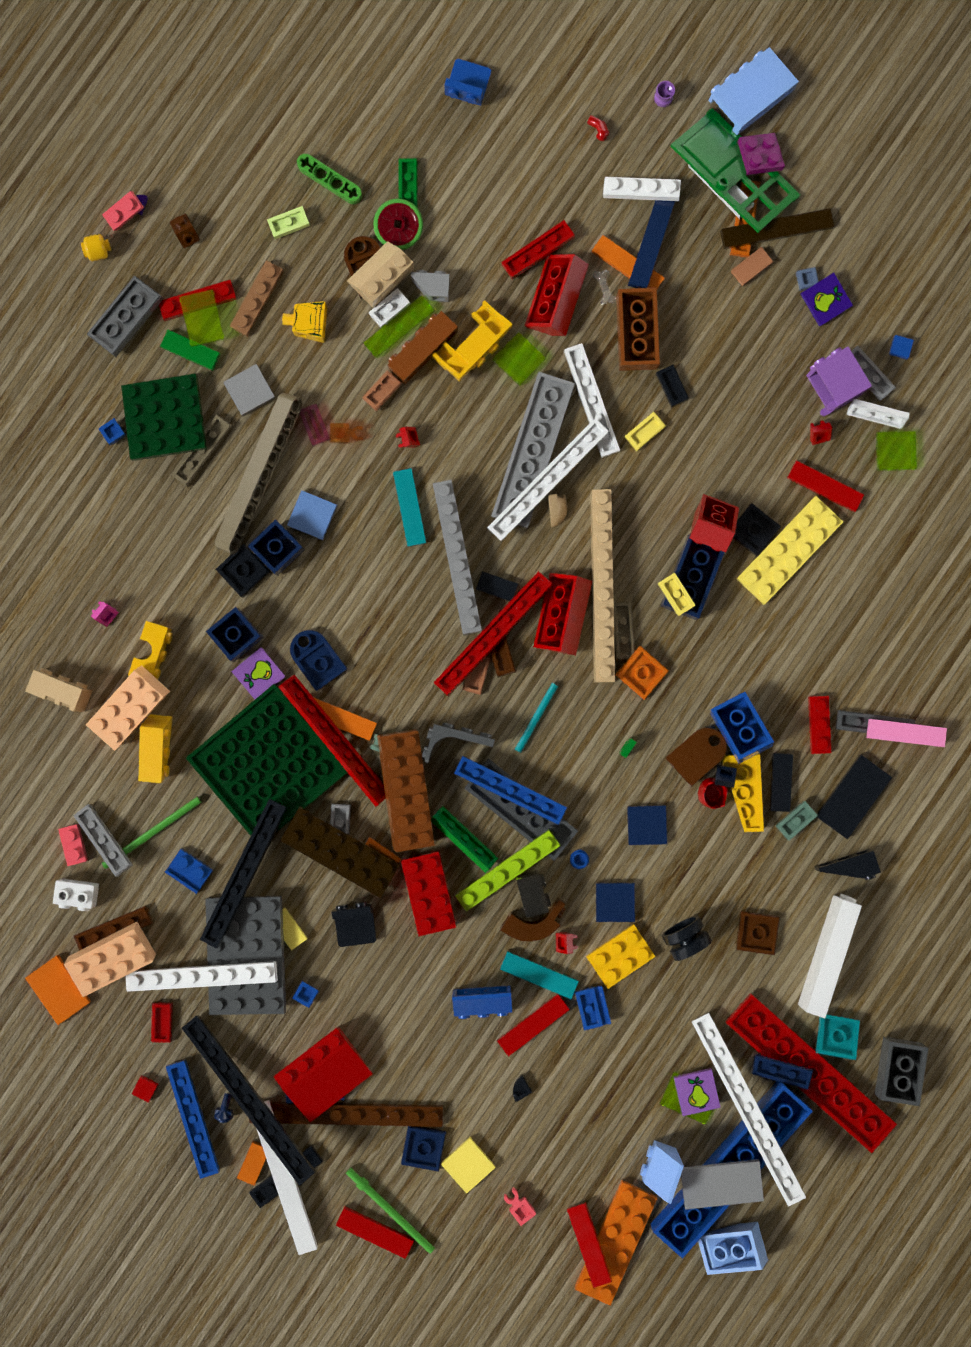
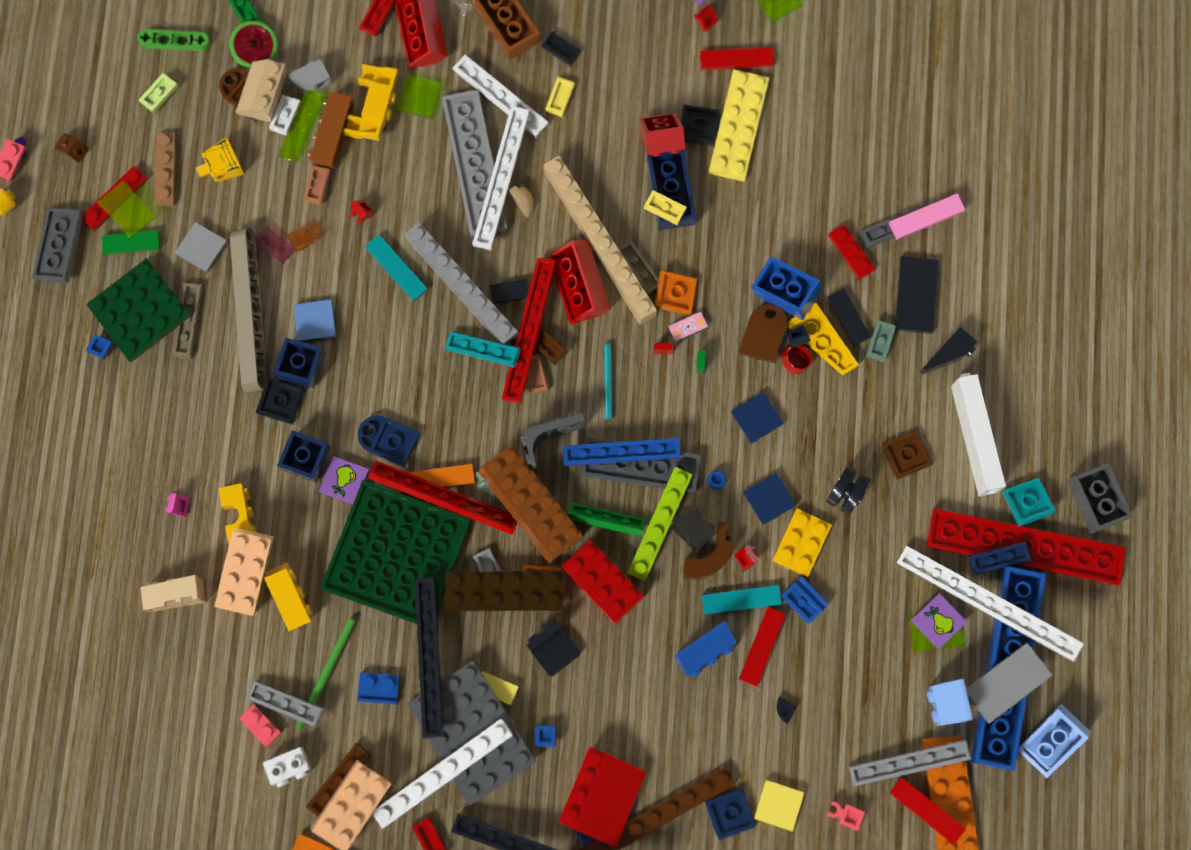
camera: 30 degrees left, 10 degrees down
(443, 627) = (482, 349): none -> teal tile
(599, 1196) = (910, 763): none -> light grey tile
(601, 716) = (663, 348): none -> red tile
(634, 709) = (687, 327): none -> bright pink tile

